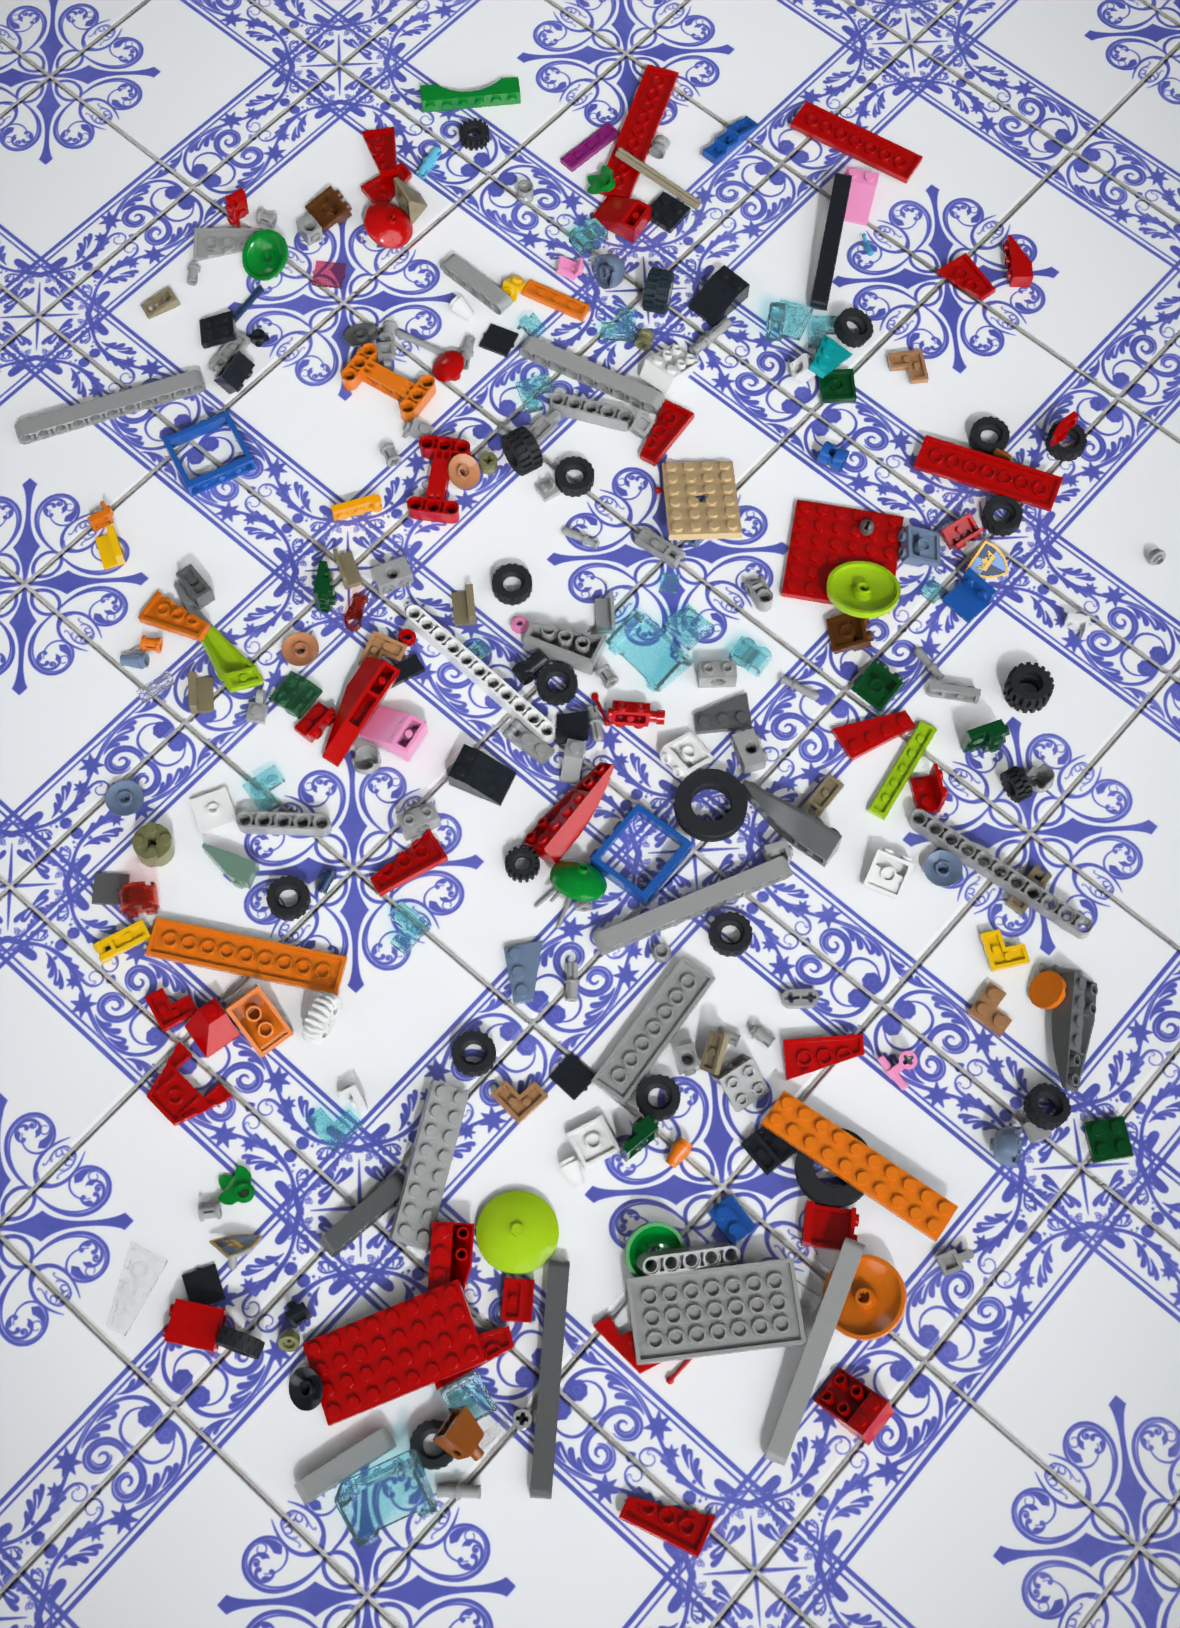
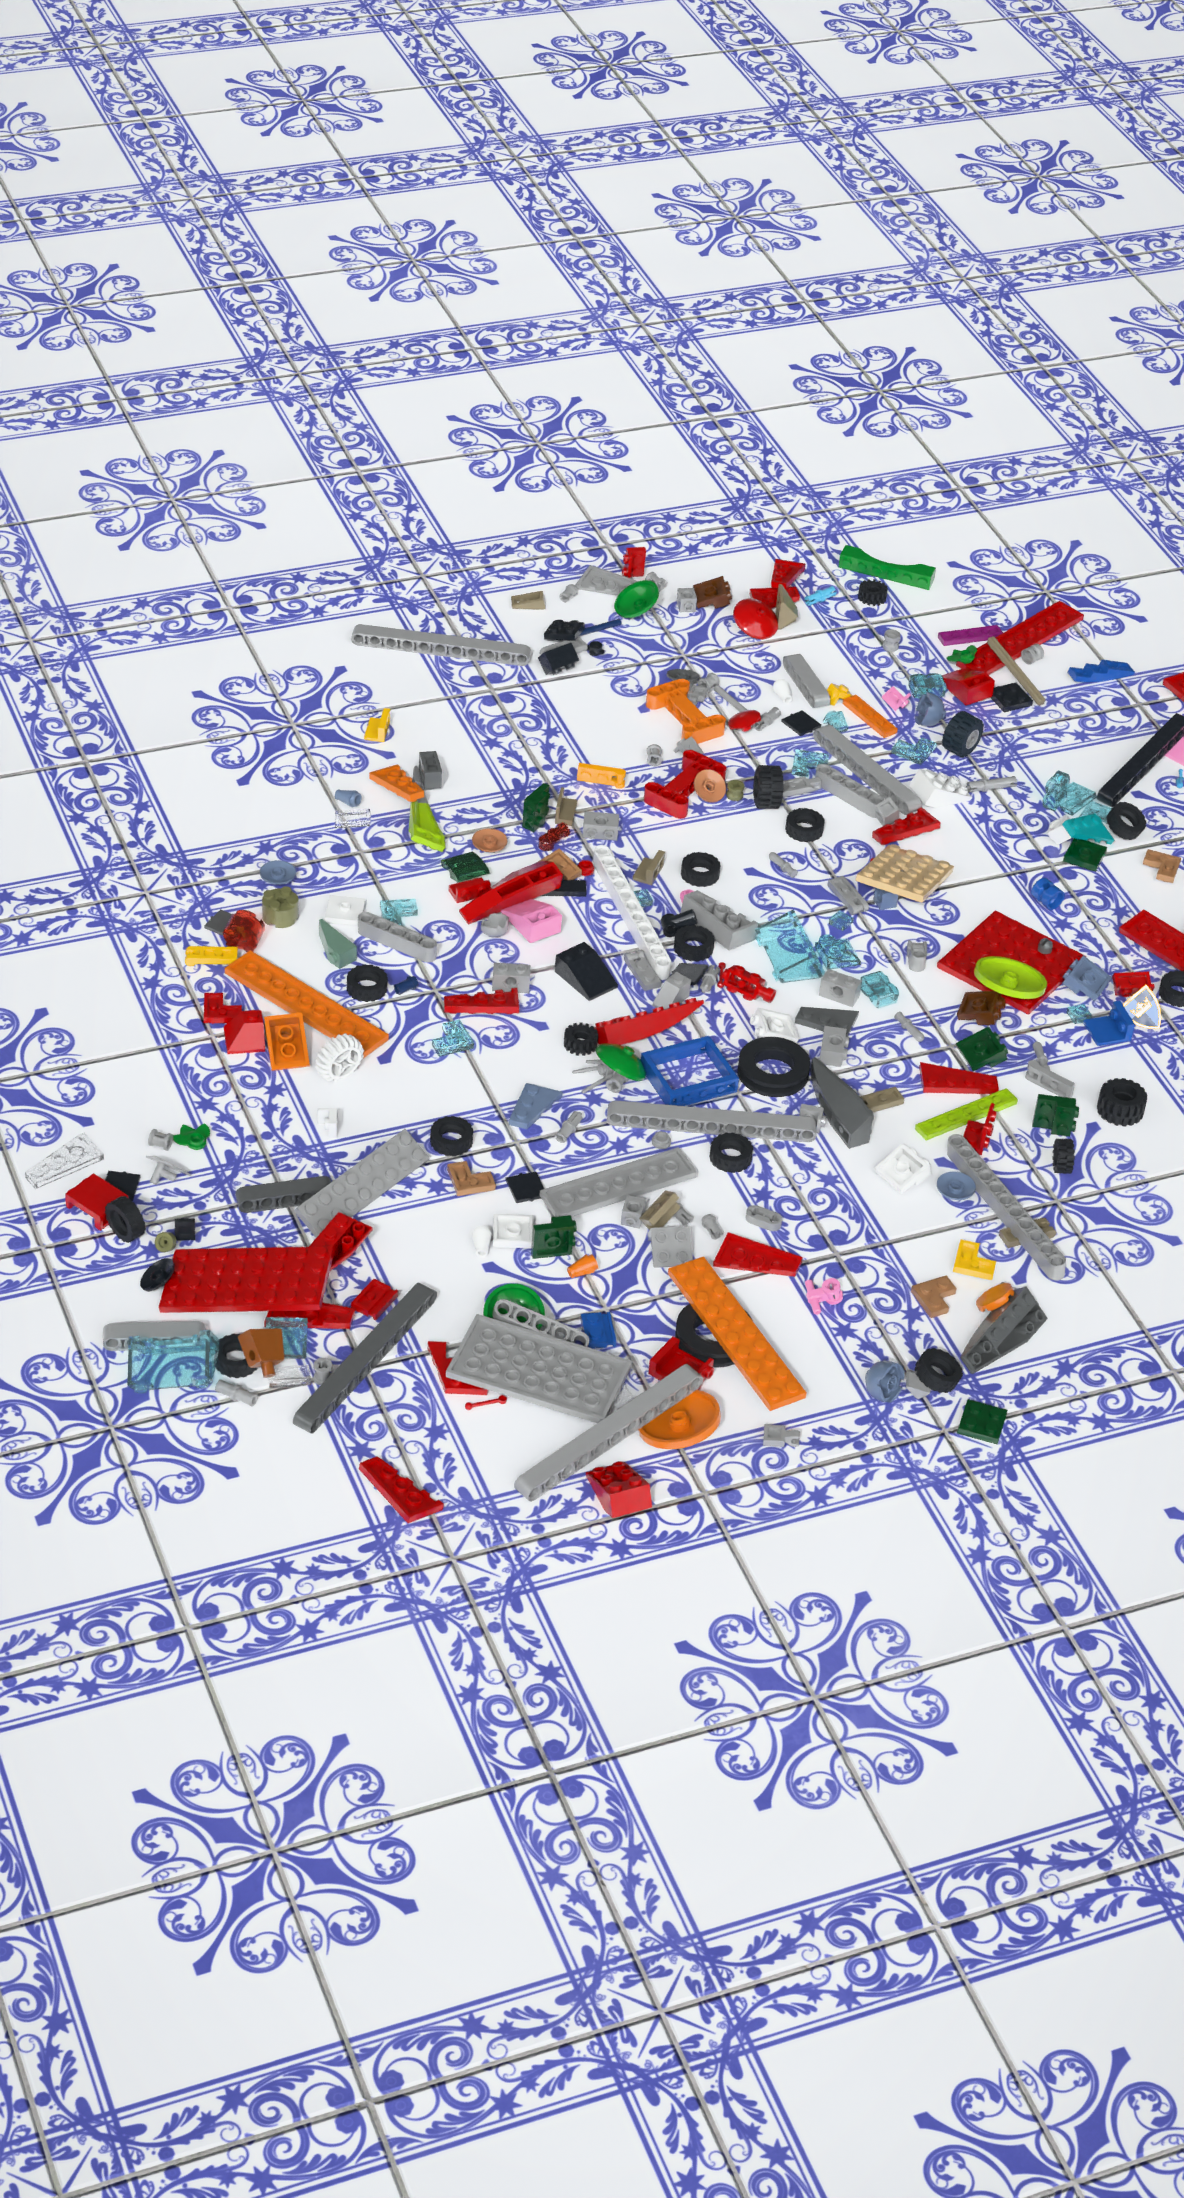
camera: 25 degrees right, 25 degrees down
(102, 518) = (380, 703): orange bracket -> none
(151, 644) = (369, 793): orange bush -> none
(177, 1097) = (186, 1063): red wing -> none
(200, 694) = (384, 837): dark tan panel -> none
(219, 475) = (501, 715): blue window -> none
(258, 711) = (426, 866): light grey plate -> none
(329, 274) = (683, 634): clear pink piece -> none
(335, 1132) = (300, 1138): clear light blue plate -> none
(517, 1232) = (405, 1259): lime dish -> none
(547, 490) = (775, 826): light grey tile -> none
(605, 614) = (770, 913): light grey panel -> none
(607, 676) = (742, 953): light grey bush -> none
(644, 339) = (931, 762): olive wheel -> none
(664, 1083) = (593, 1215): black tyre -> none
(720, 296) = (1020, 760): black slope -> none
(768, 1149) = (664, 1299): black slope -> none
(1041, 778) = (1089, 1165): light grey hair -> none

